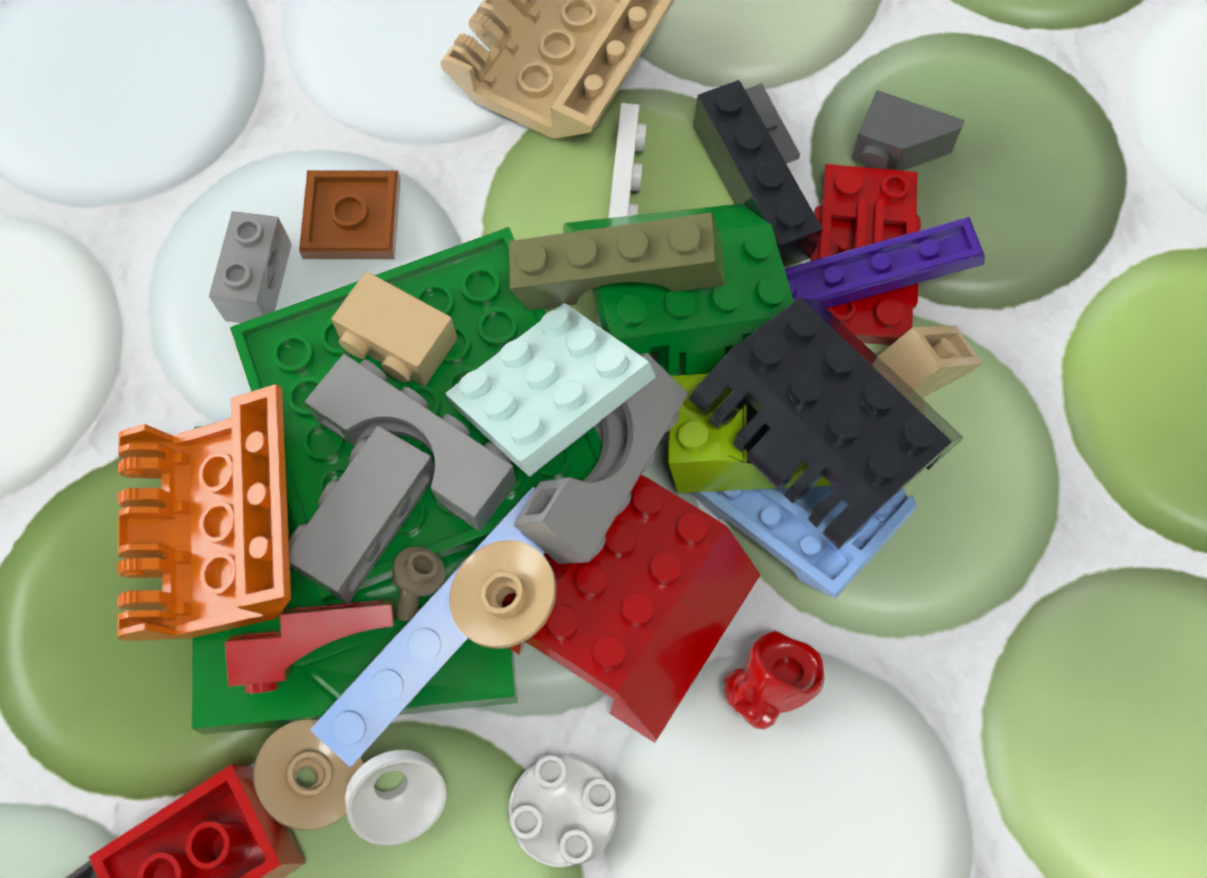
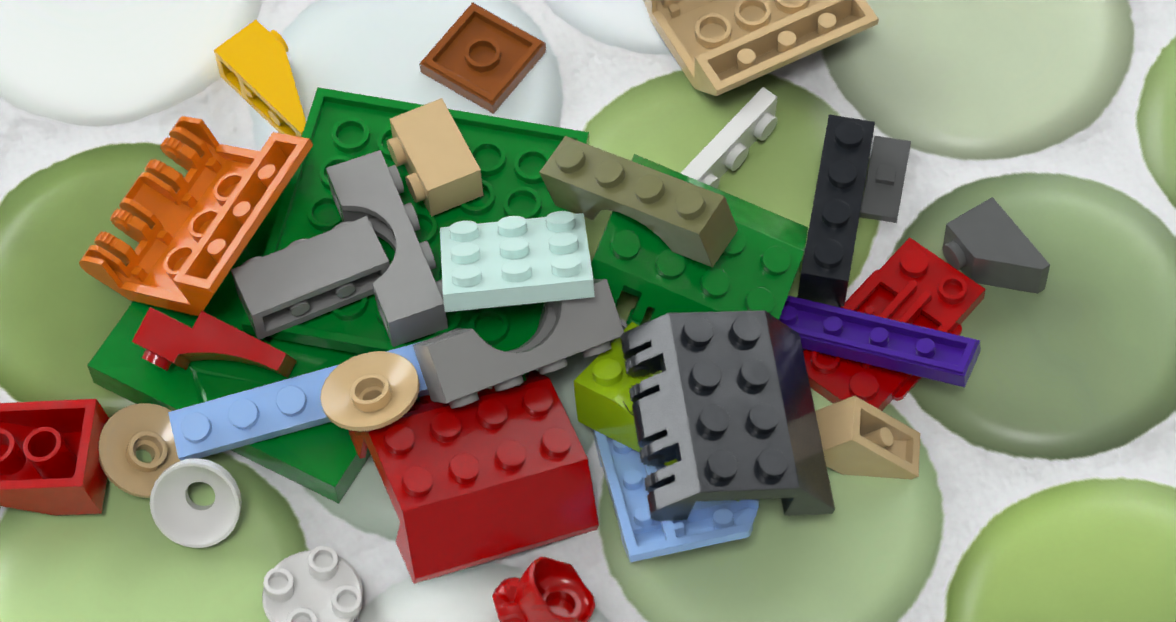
camera: 35 degrees right, 10 degrees down
(158, 342) = (260, 72): none -> yellow slope
(250, 267) = (371, 52): light grey brick -> none
(416, 578) = (323, 347): dark tan plate -> none

